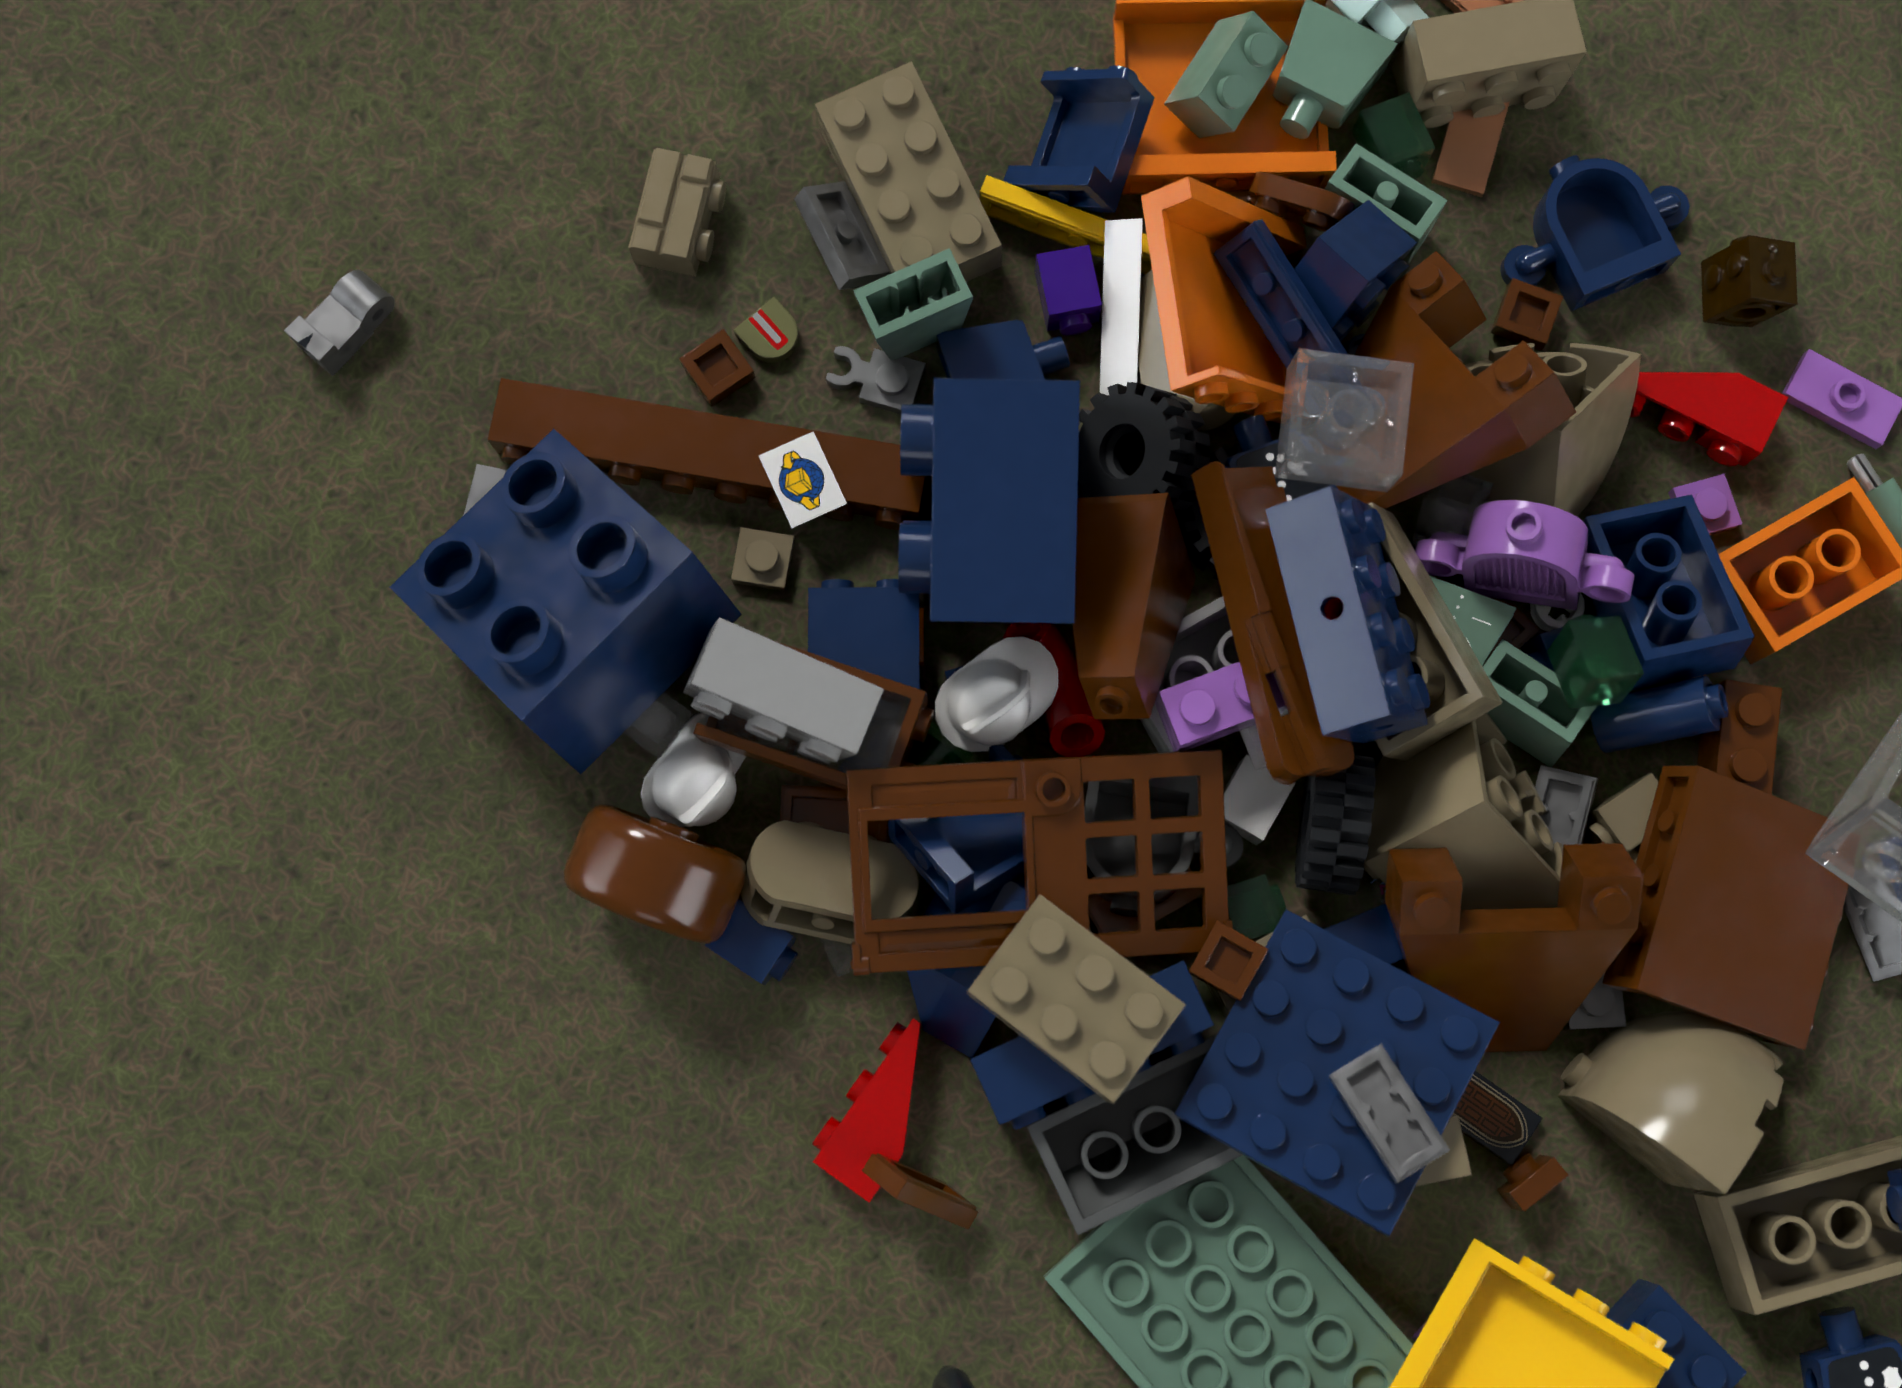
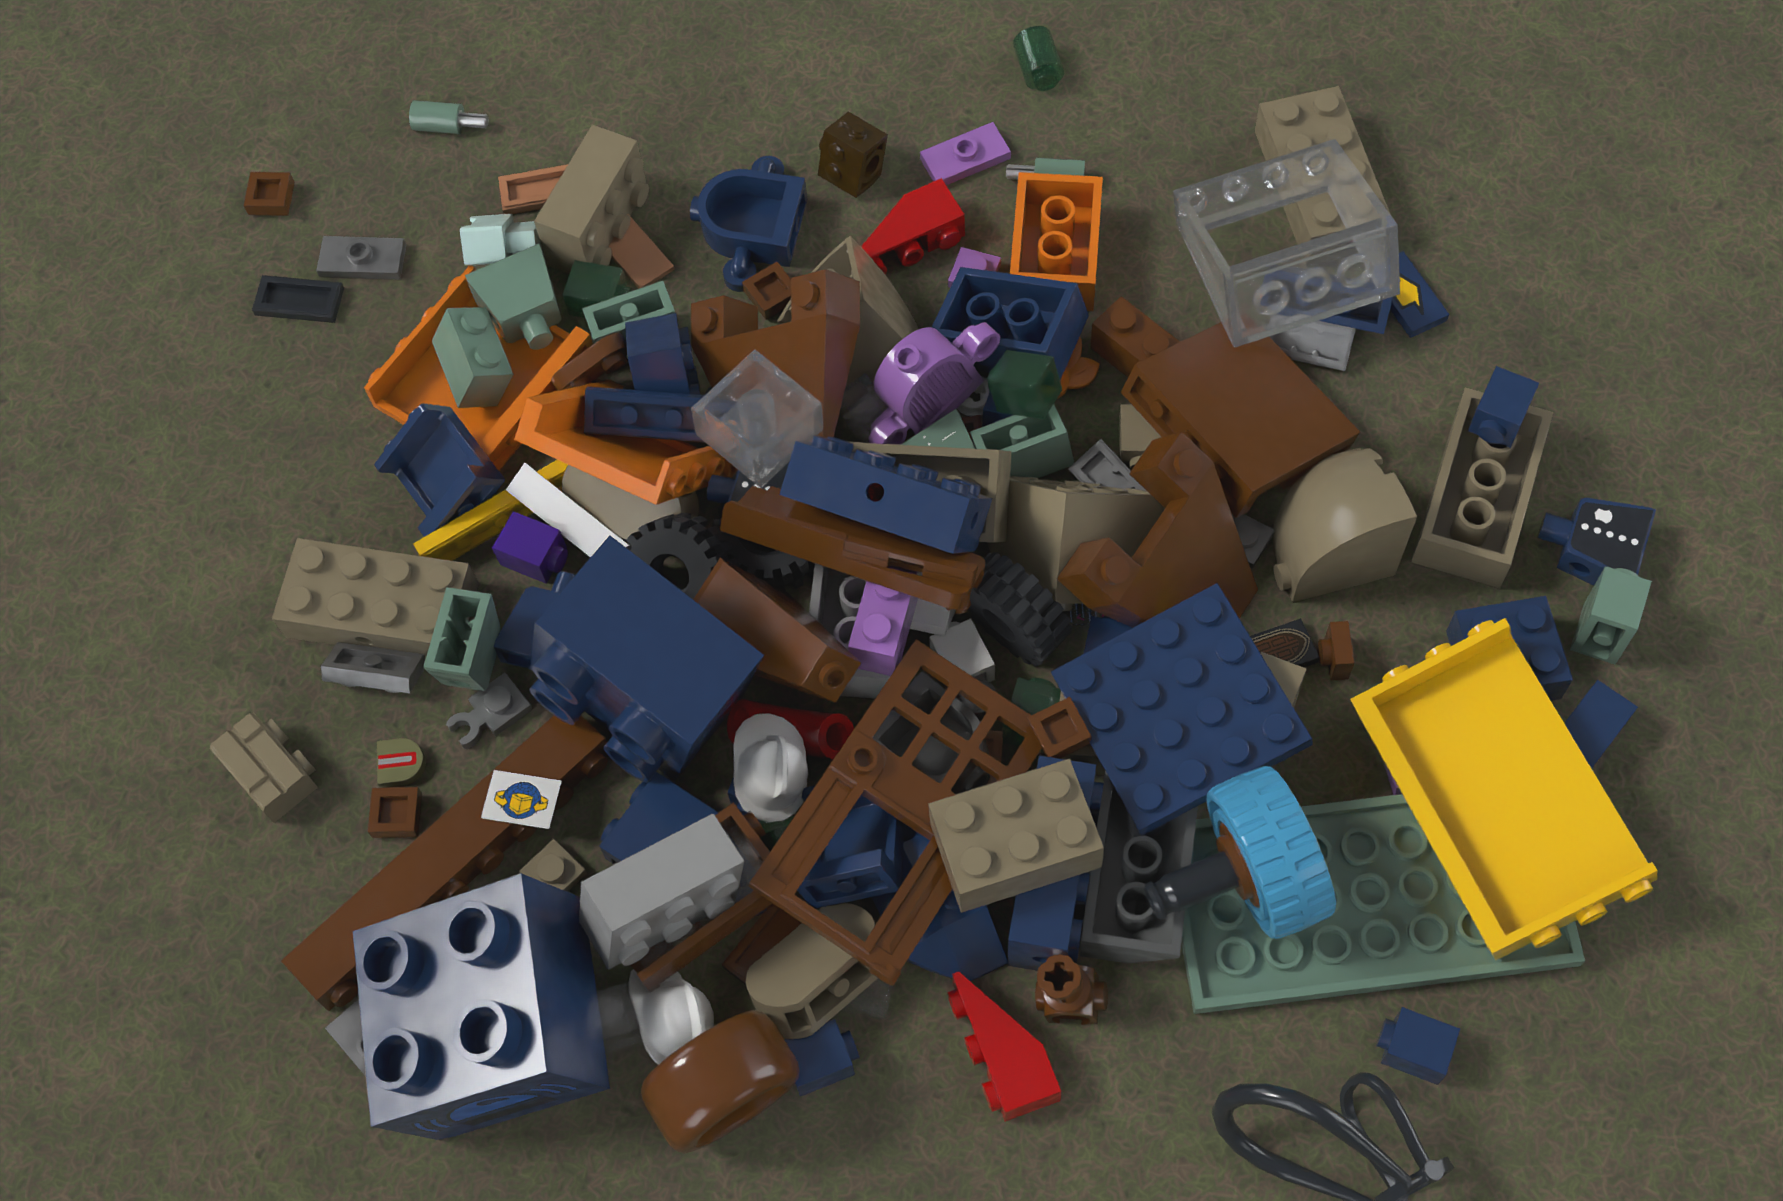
camera: 50 degrees left, 15 degrees down
(342, 321) = (141, 1057): flat silver leg -> none
(920, 1190) = (1076, 1047): reddish brown tile -> none
(977, 1145) = (1069, 991): none -> reddish brown connector
(1230, 1259) = (1262, 854): none -> dark azure wheel
(1388, 1113) = (1229, 682): flat silver plate -> none
(1660, 714) = (1086, 375): dark blue brick -> none

